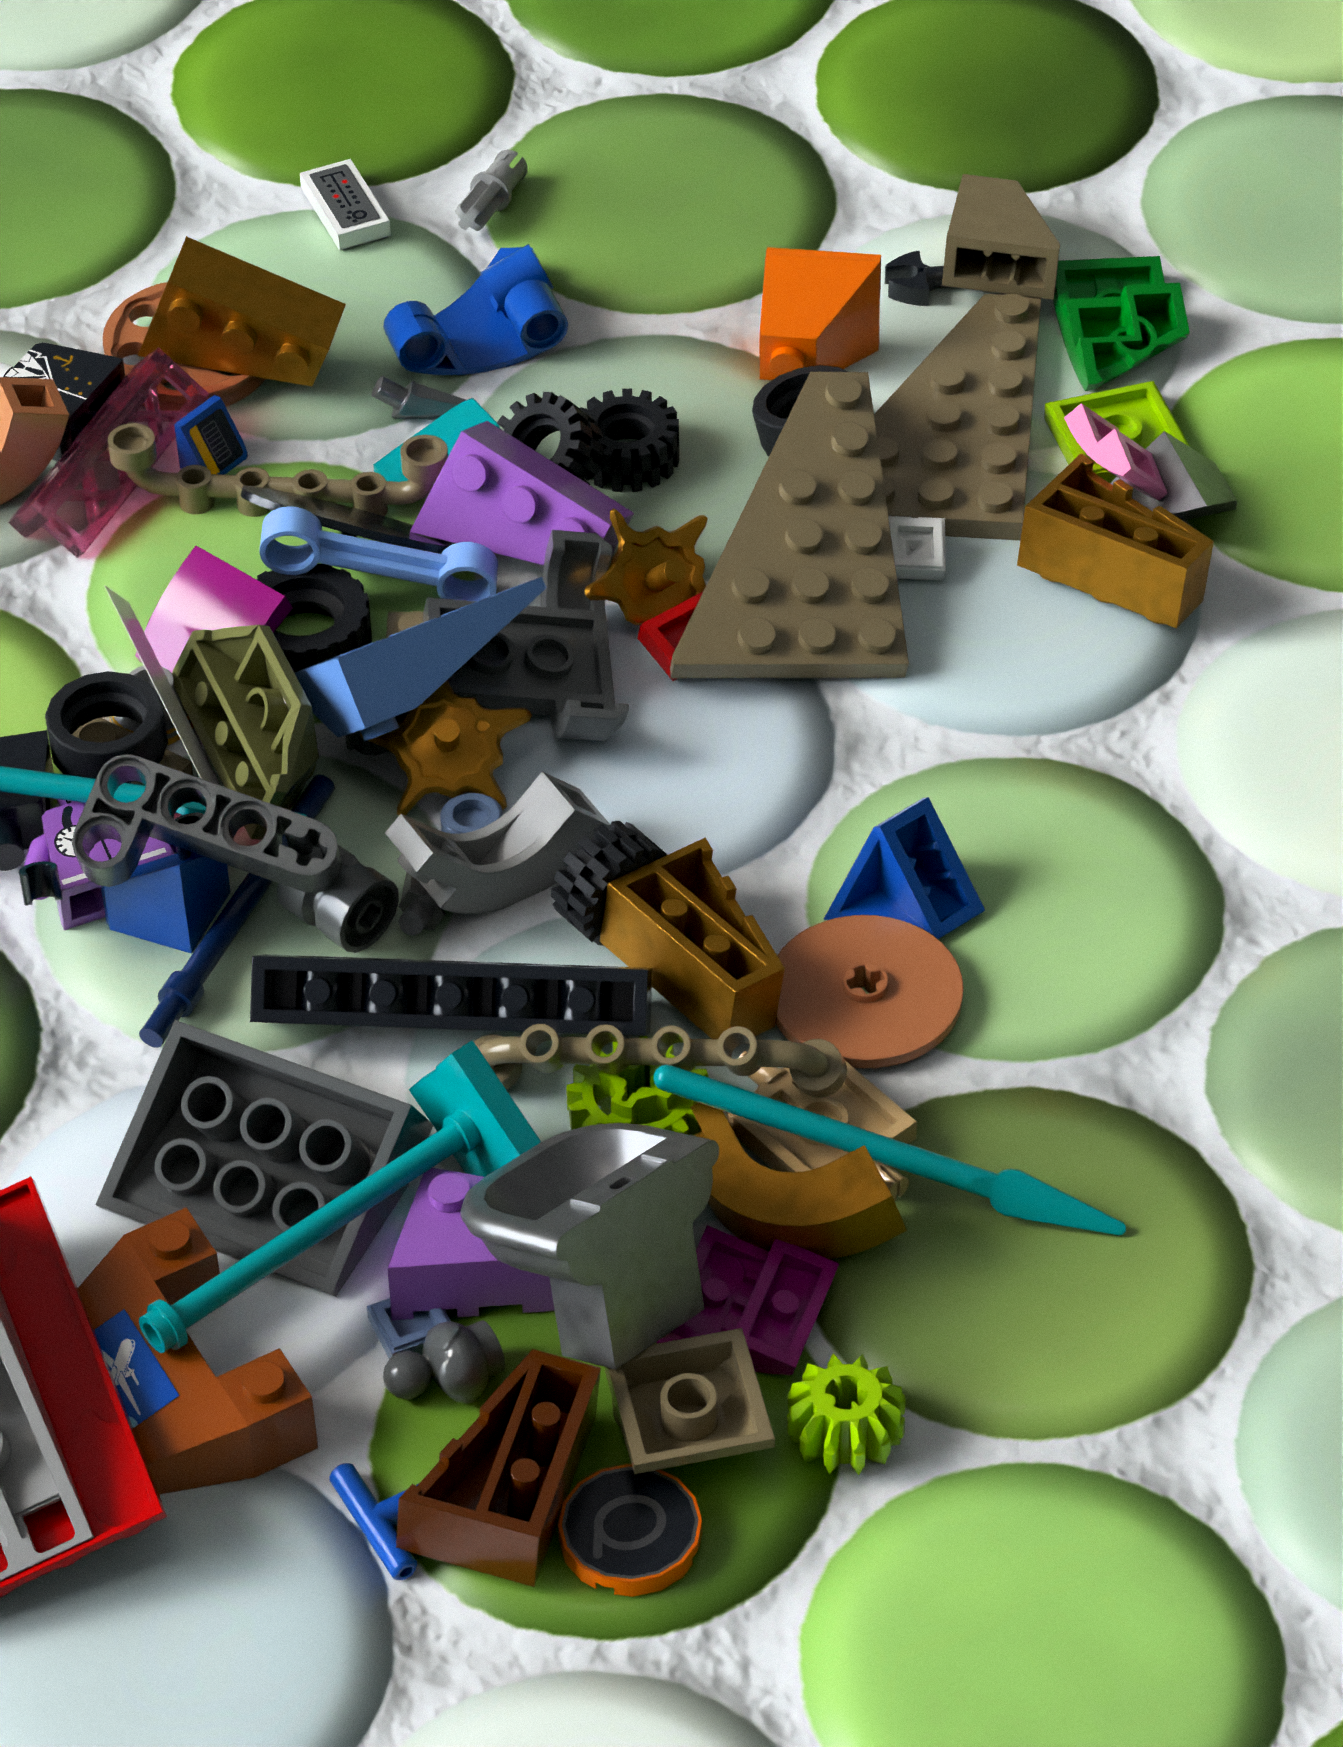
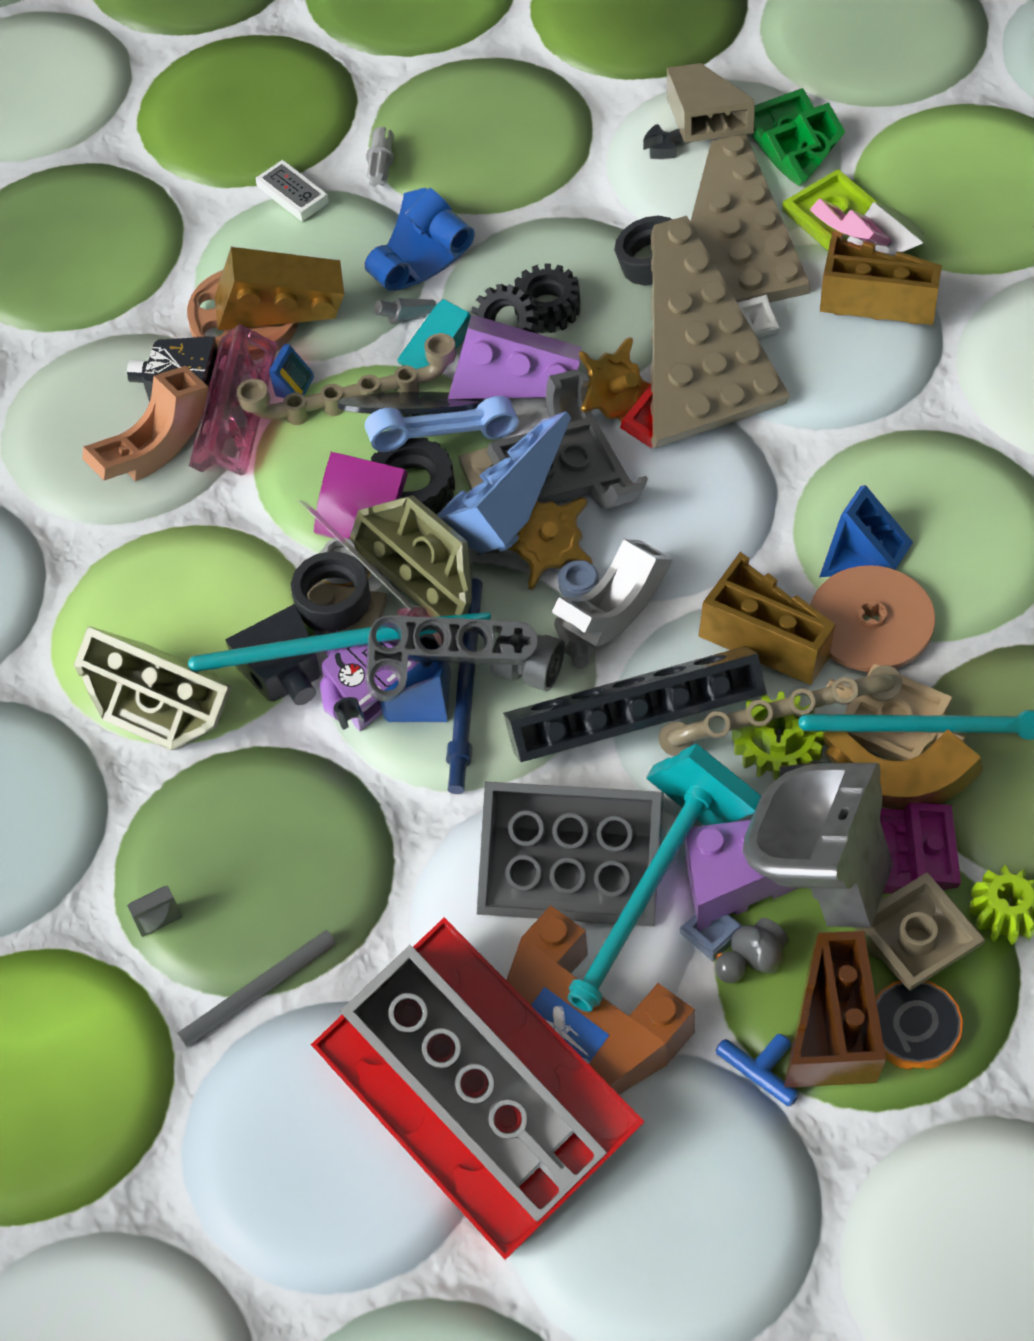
camera: 15 degrees left, 10 degrees up
(599, 861) = (688, 594): black tyre -> none
(818, 309) = (624, 182): orange slope -> none

